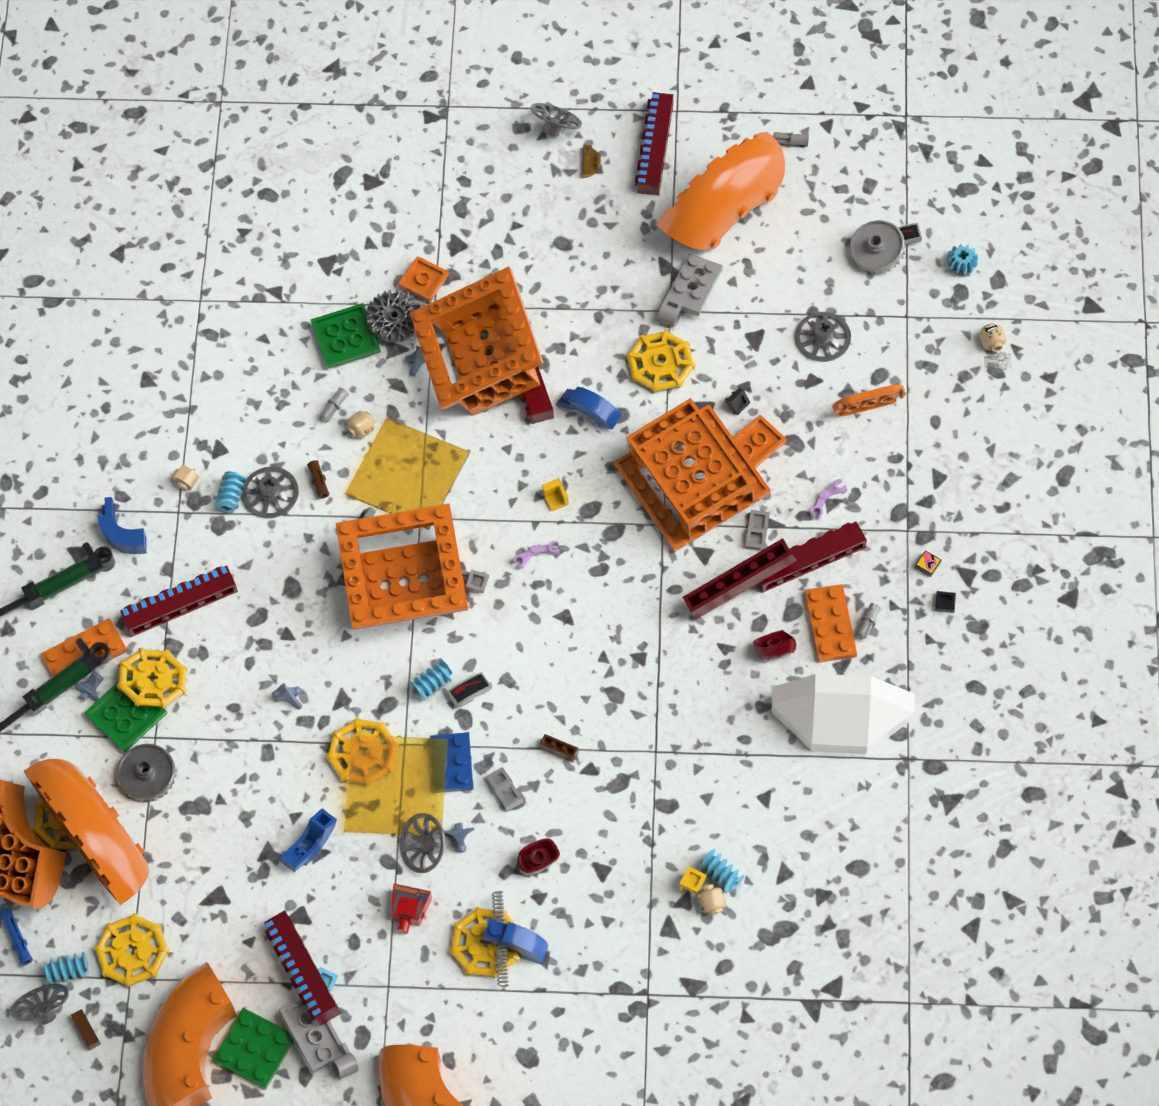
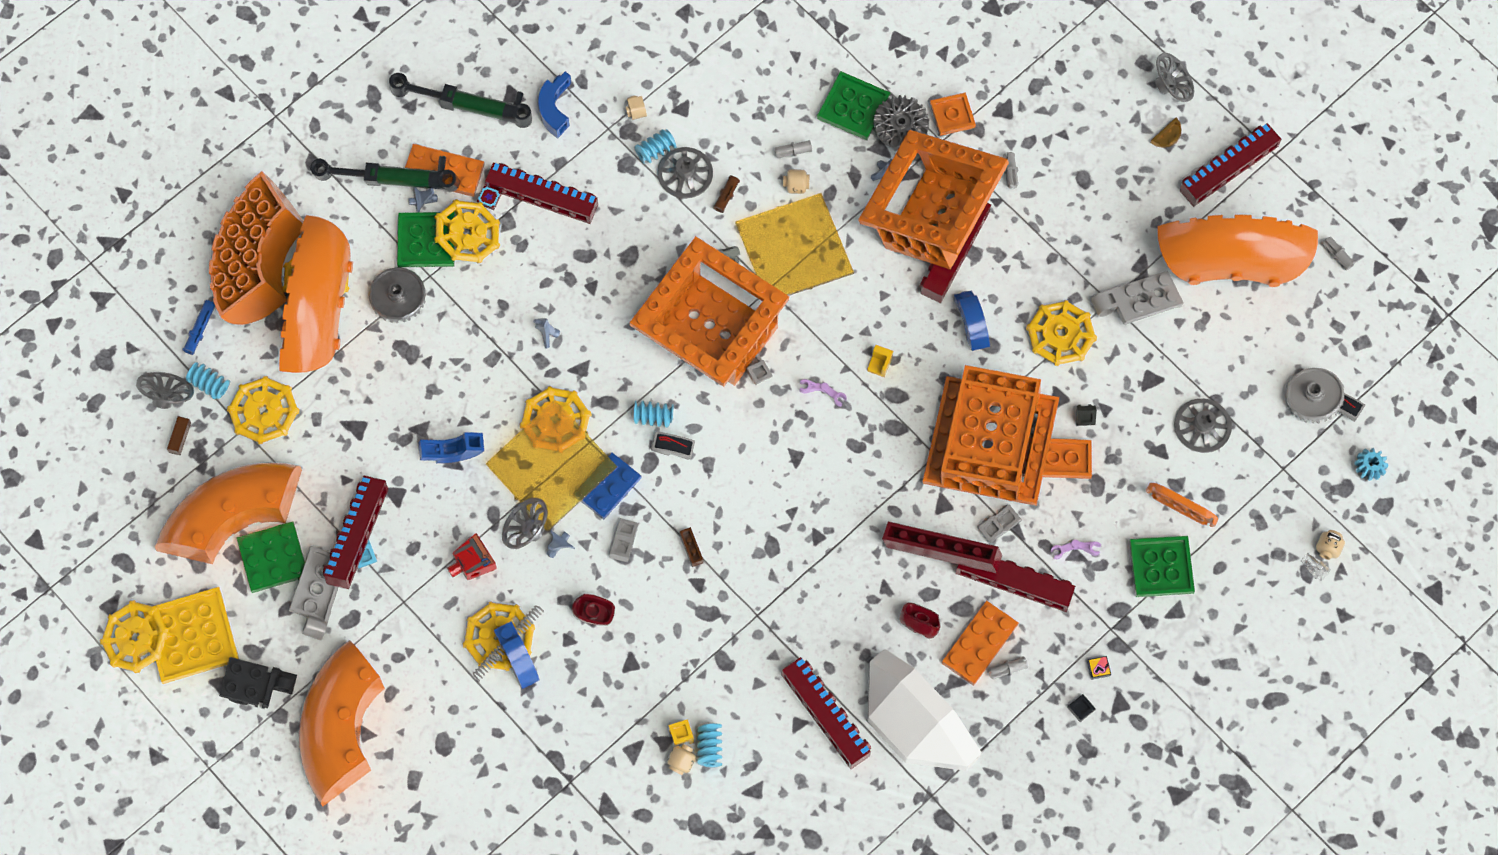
camera: 40 degrees right, 5 degrees up
(141, 640) = (489, 197): none -> dark red tile
(777, 770) = (826, 713): none -> dark red brick
(897, 455) = (1162, 566): none -> green plate

